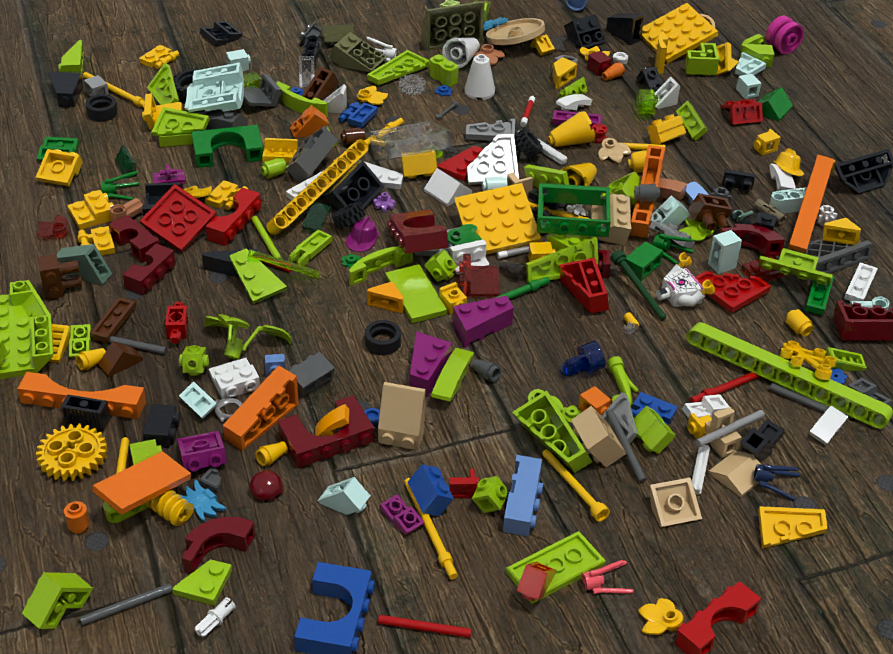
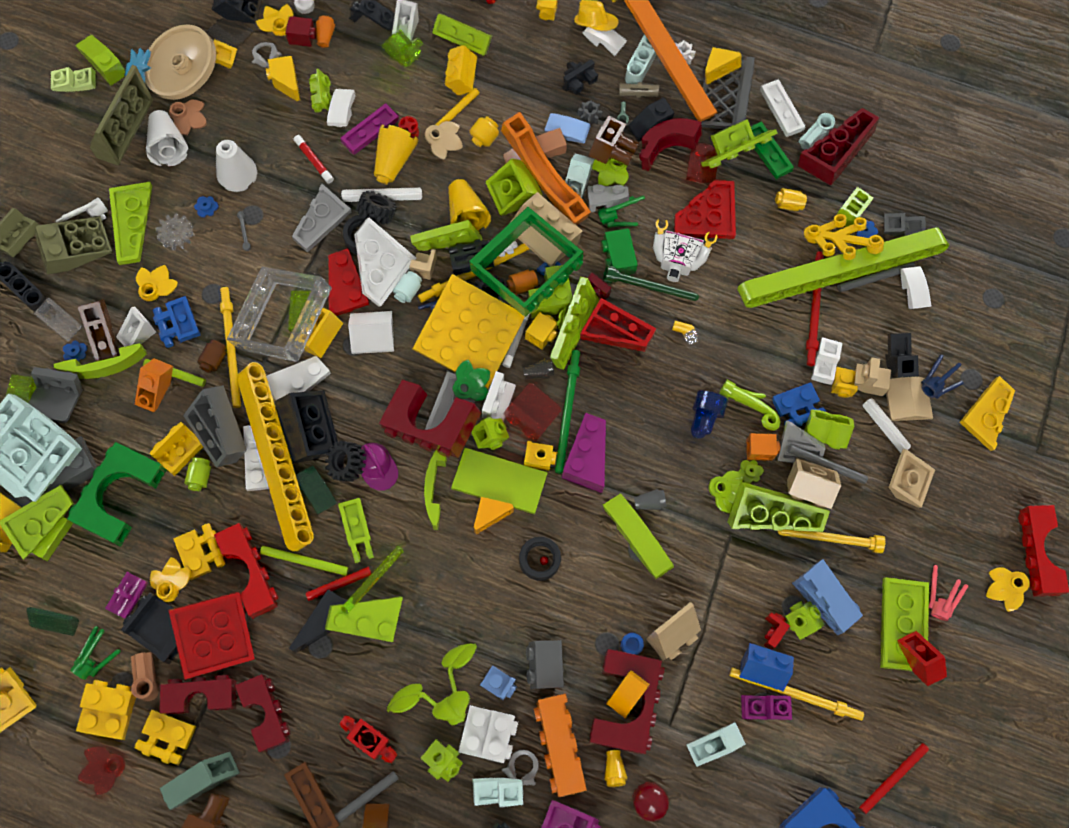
camera: 55 degrees left, 30 degrees up
(350, 260) = (407, 506): green plant -> none
(384, 202) = (342, 406): medium lavender plant -> none
(428, 361) = (608, 547): magenta wedge -> none
(443, 70) = (180, 183): lime brick -> none
(646, 192) = (552, 177): dark grey brick -> none
(724, 251) = (671, 180): light aqua brick -> none
(730, 428) = (878, 385): light grey bar -> none

